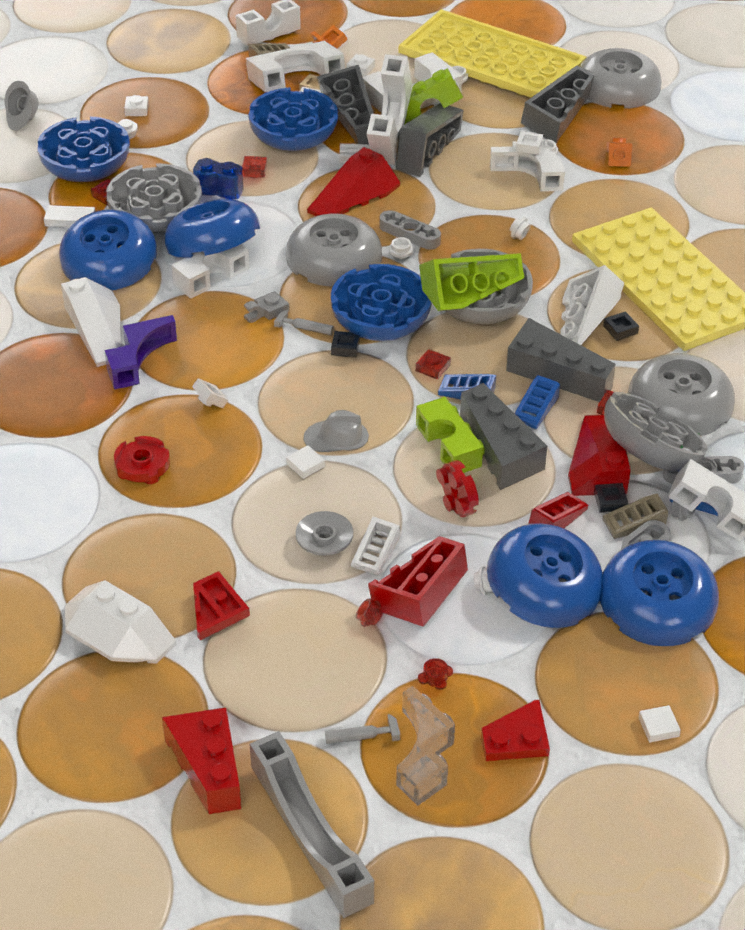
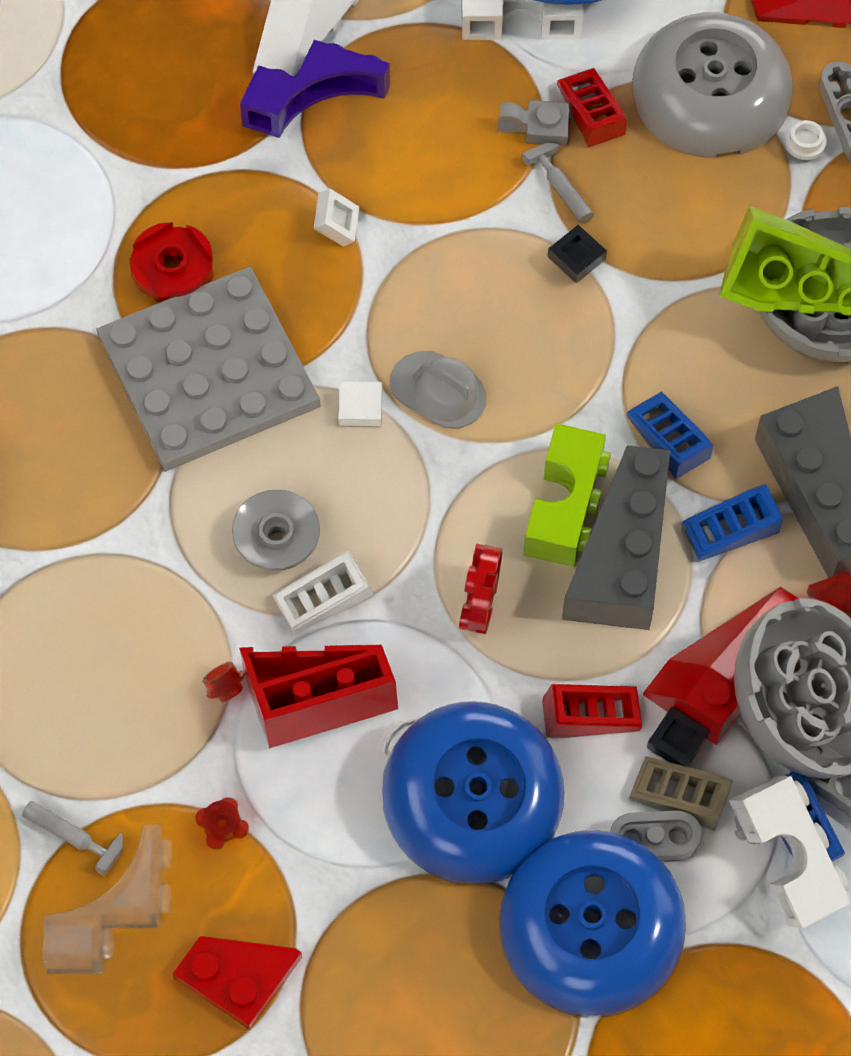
camera: 40 degrees right, 20 degrees up
(209, 494) = (208, 368): none -> light grey plate
(217, 605) = (67, 539): red wing -> none
(291, 288) = (599, 130): none -> red slope
(380, 302) = (683, 195): blue brick -> none
(433, 364) = (663, 363): clear red plate -> none

